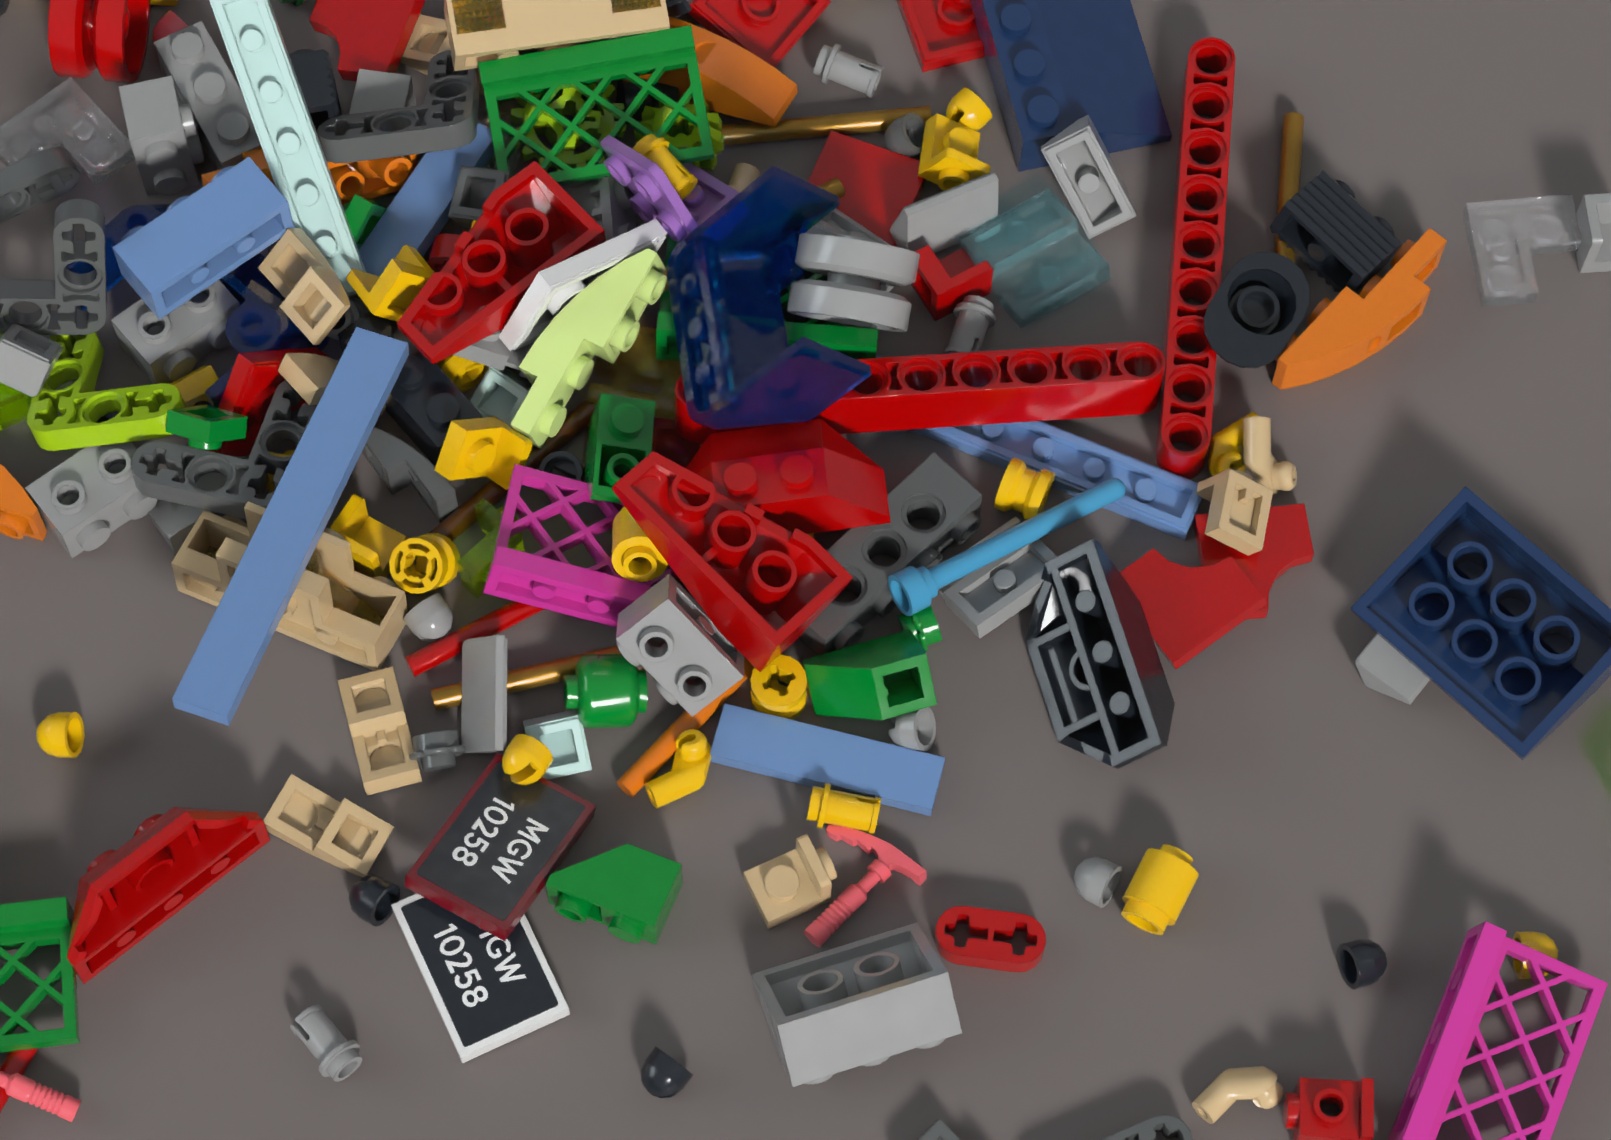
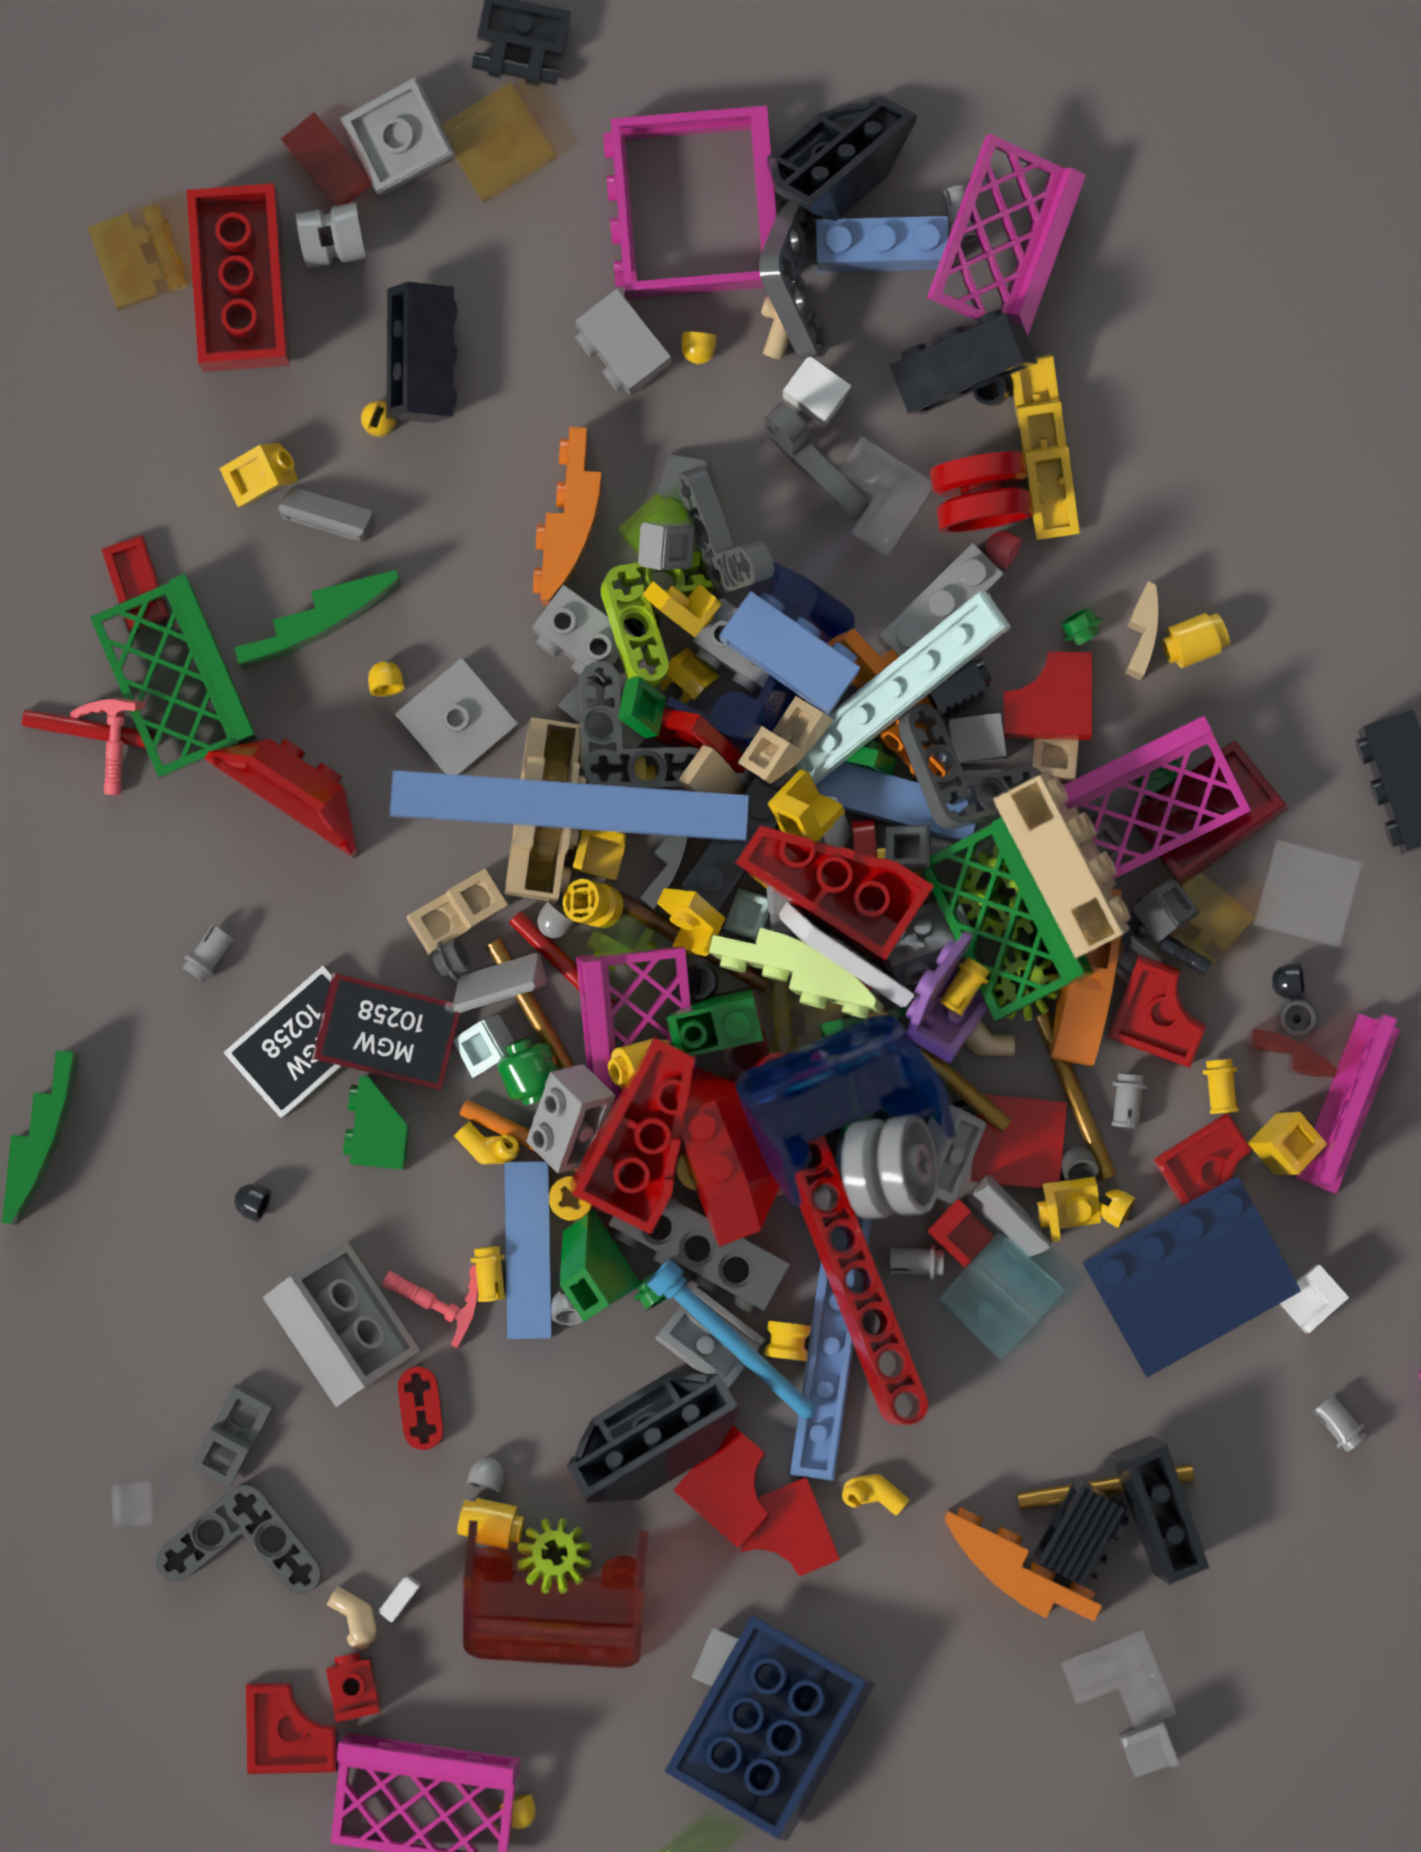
camera: 80 degrees right, 20 degrees up
(105, 356) = (689, 612): none -> yellow bracket
(136, 667) = (456, 719): none -> light grey plate
(161, 135) = (892, 578): light grey brick -> none
(327, 828) = (371, 897): tan slope -> none
(373, 898) = (324, 950): black hinge -> none
(526, 759) = (453, 1029): yellow hinge -> none
(791, 882) = (422, 1250): tan bracket -> none
(1089, 178) = (1075, 1323): light grey slope -> none
(1191, 275) = (1057, 1424): red beam -> none
(1228, 1023) = (399, 1598): none -> white tile
(1236, 510) = (810, 1509): tan bracket -> none
(1242, 827) = (545, 1568): none -> lime gear
(1256, 310) = (985, 1484): black piece -> none
(1259, 459) = (865, 1519): tan arm -> none
(1299, 830) = (585, 1627): none -> clear red windscreen
(1341, 136) = (1160, 1510): none -> black brick
(1361, 962) = (477, 1686): black hinge -> none

